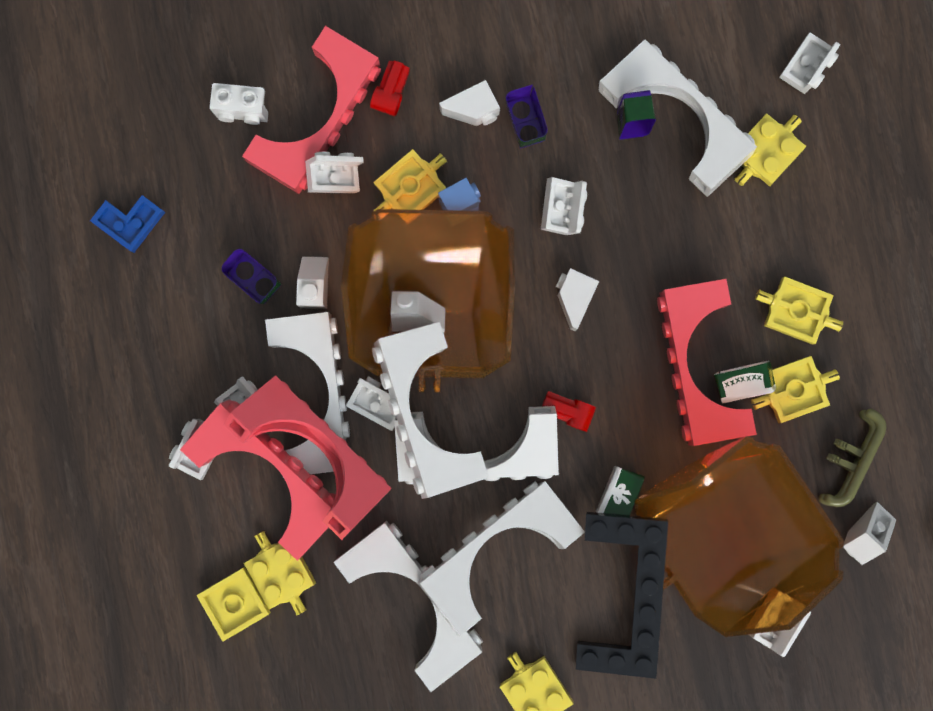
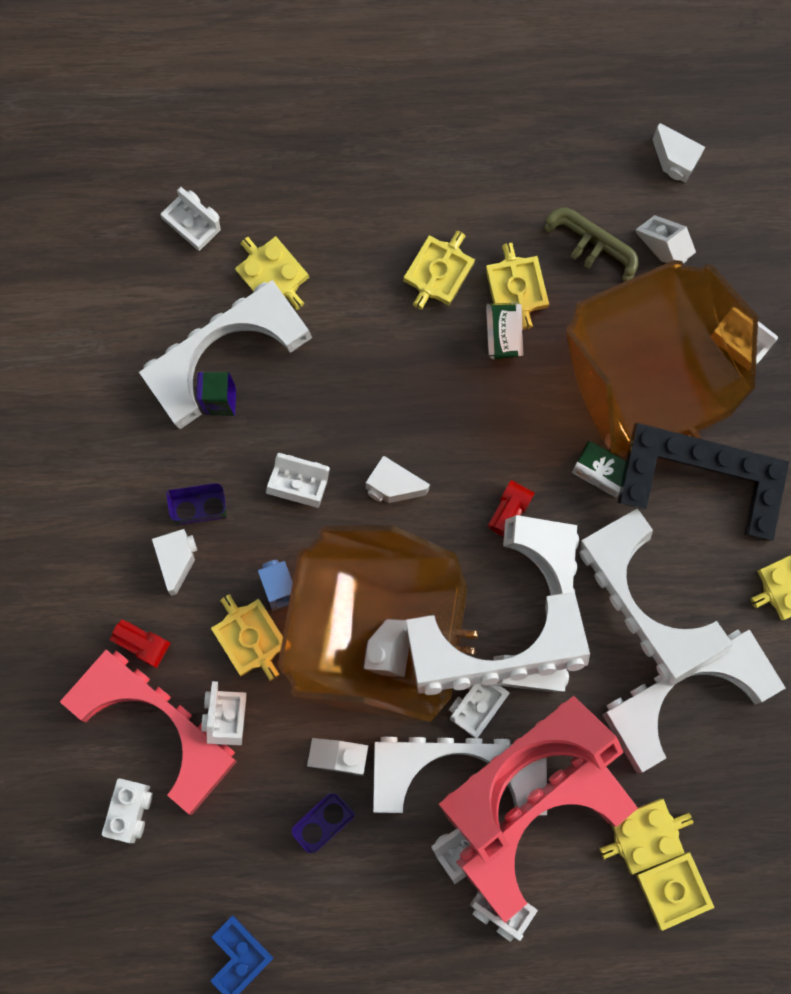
camera: 90 degrees left, 10 degrees down
(703, 418) = (427, 380): coral arch -> none

